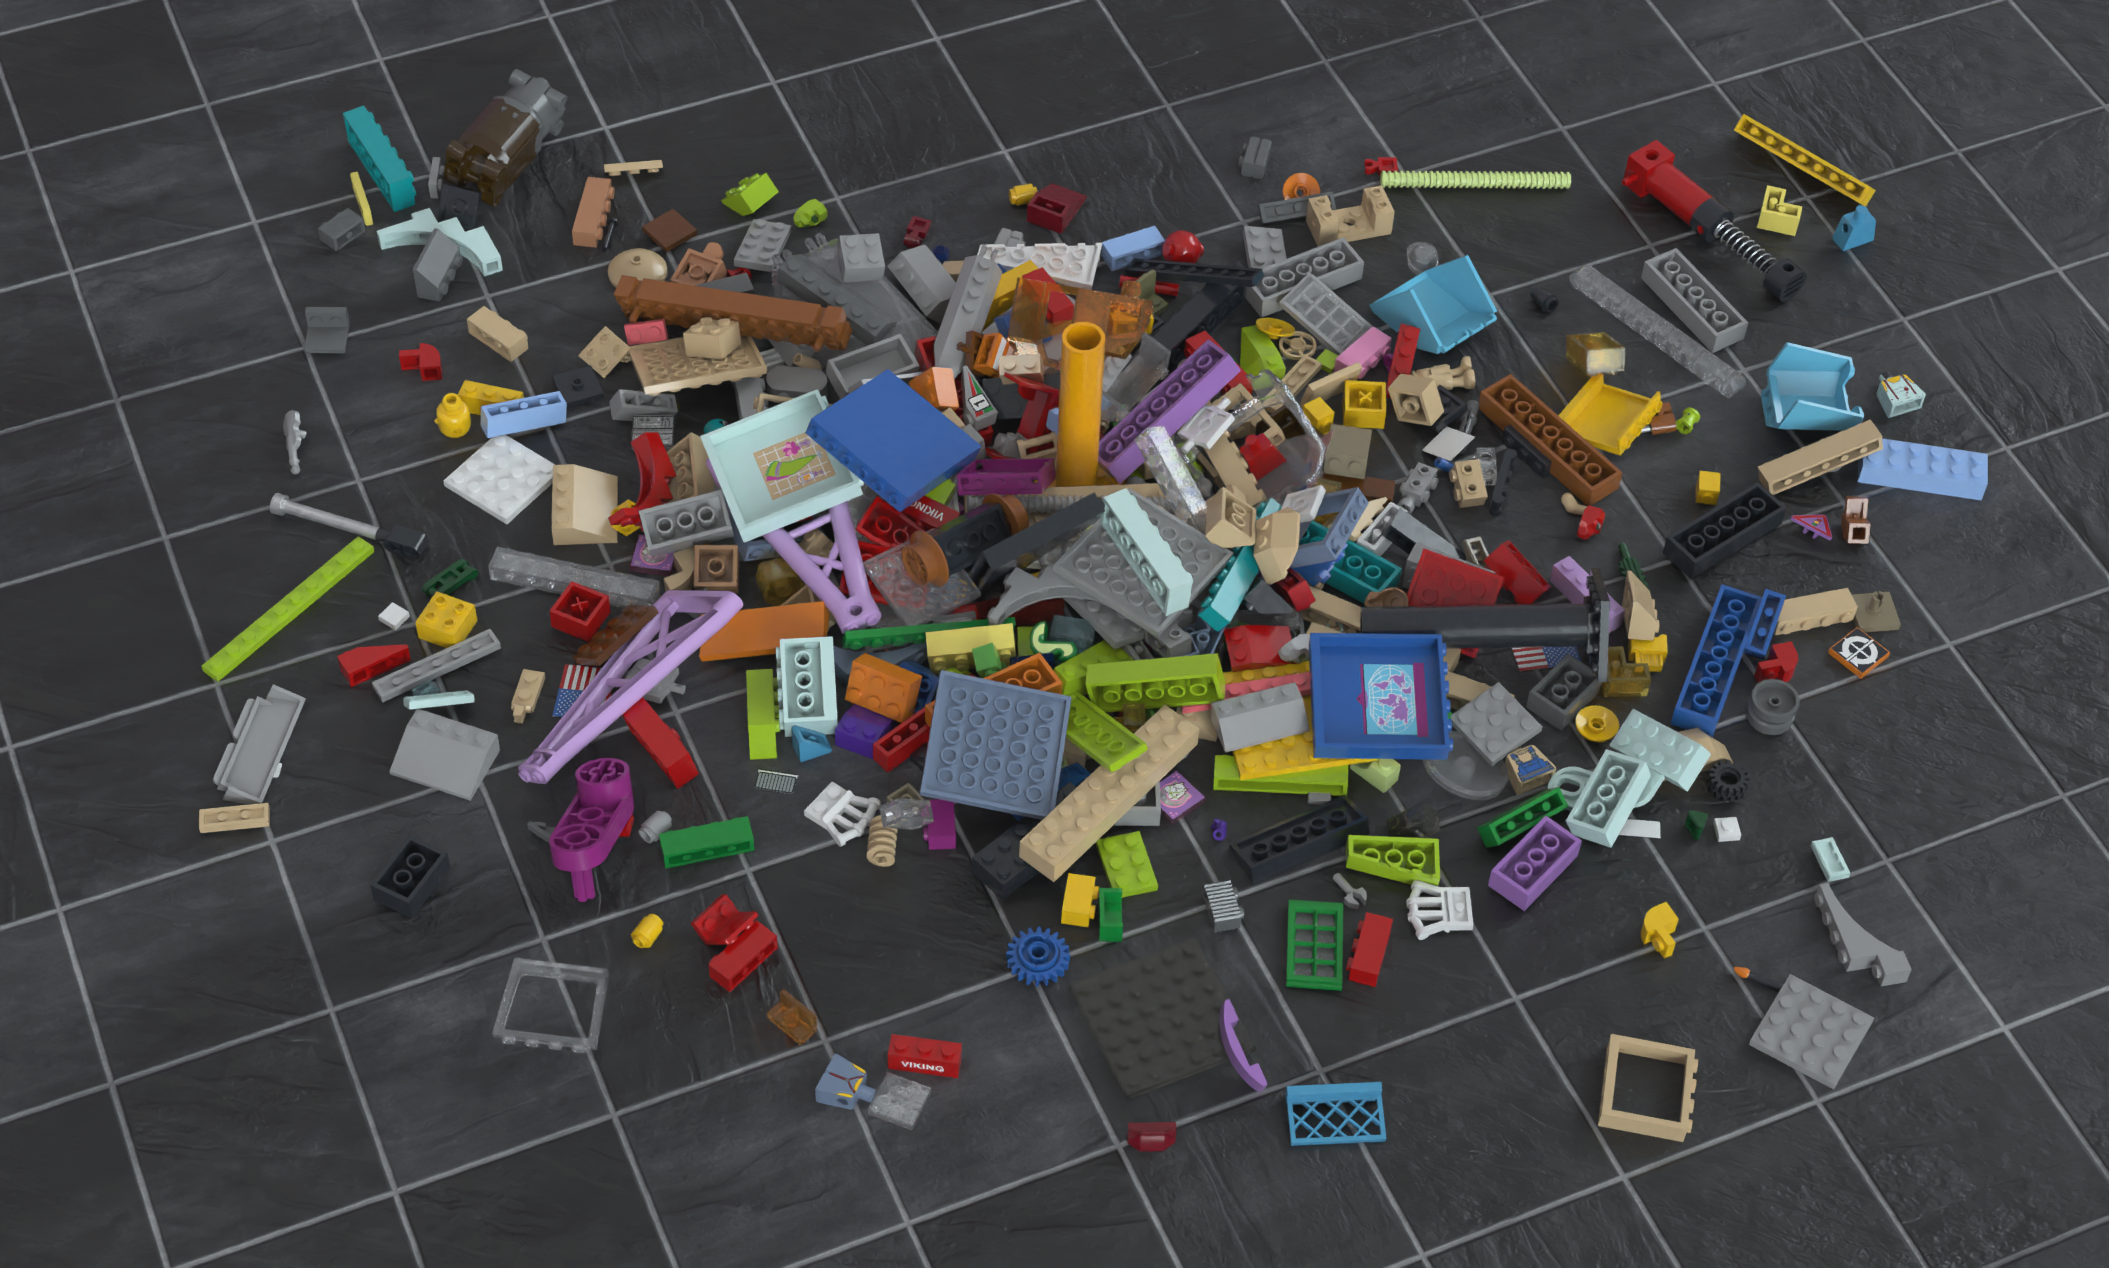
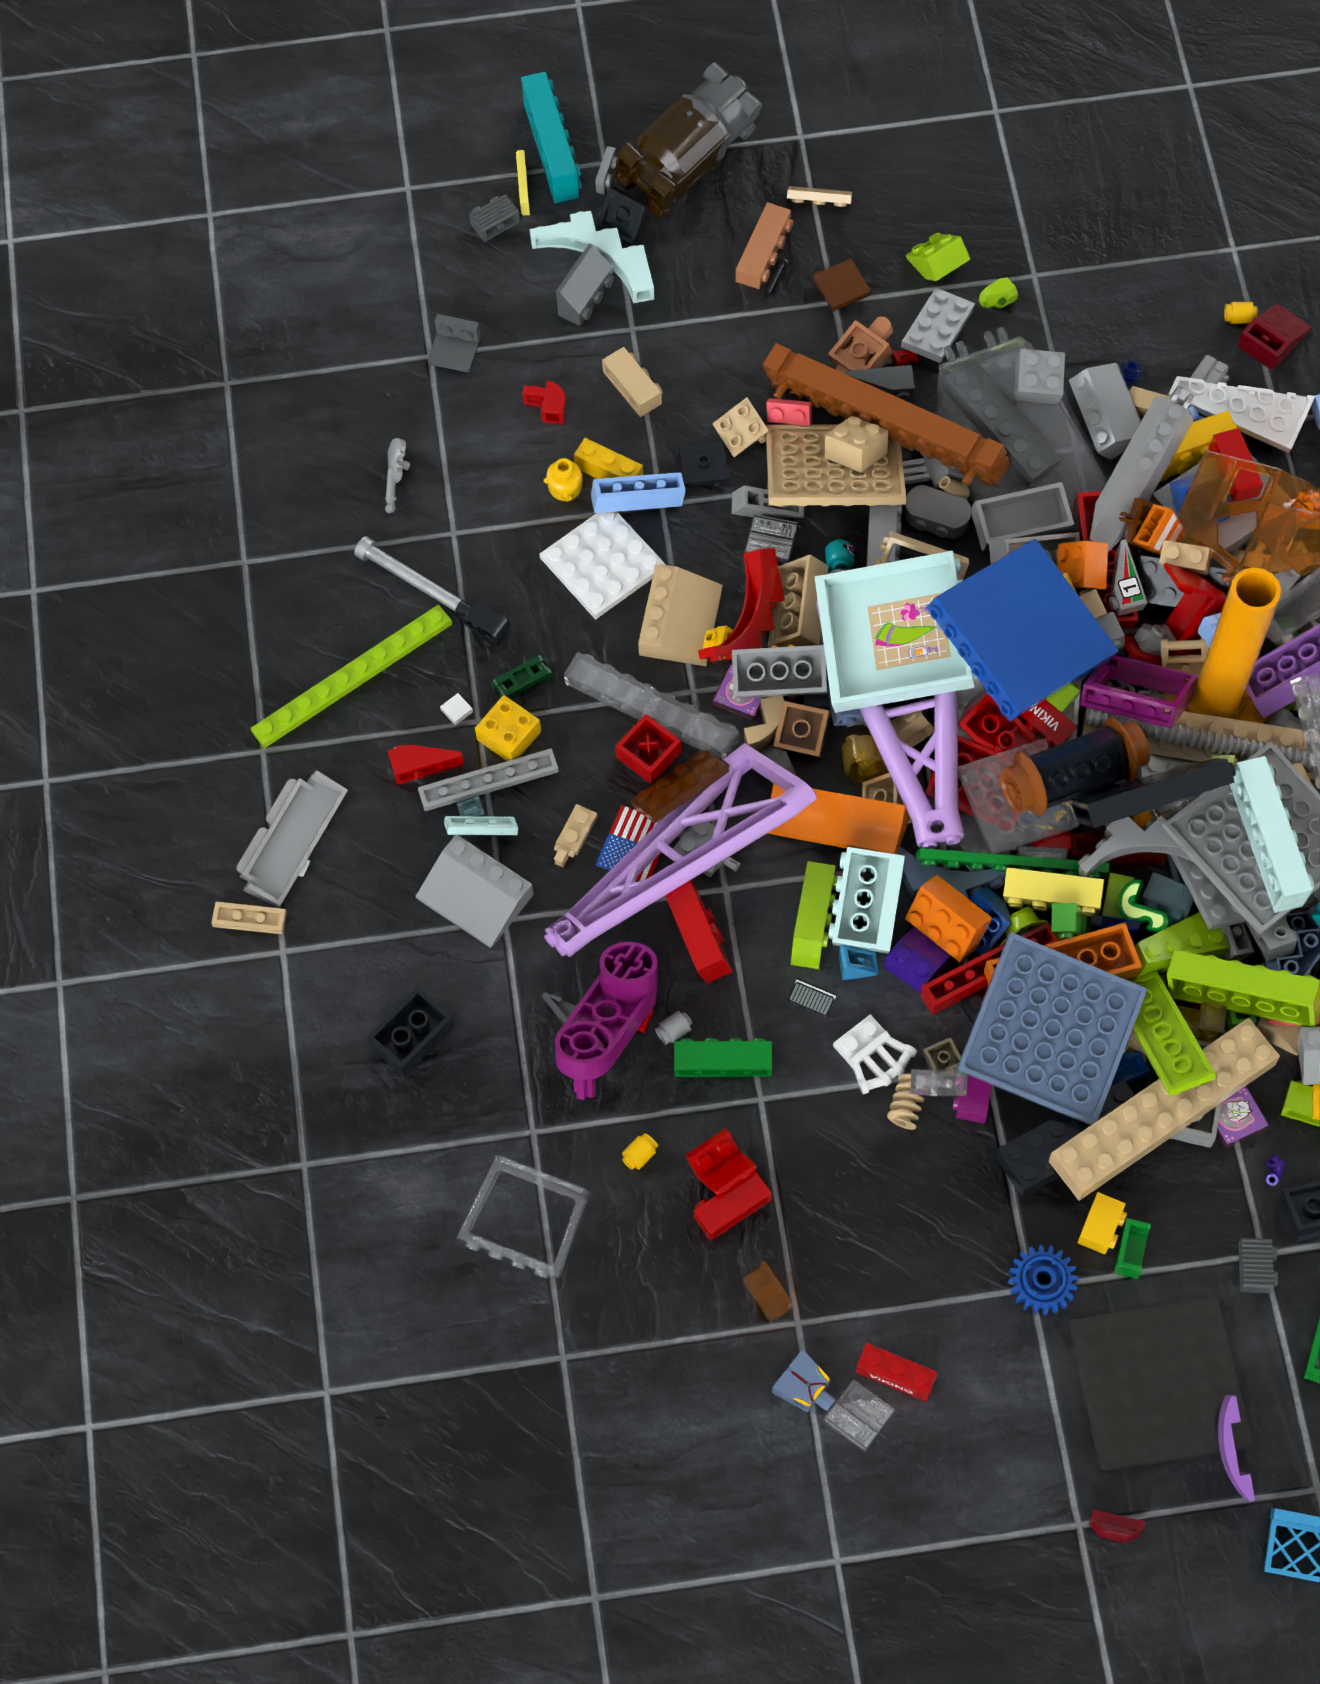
camera: 20 degrees right, 15 degrees up
(639, 264) = (802, 336): tan dish -> none
(916, 230) = (1113, 334): dark red plate -> none
(1127, 864) = (1164, 1188): lime plate -> none

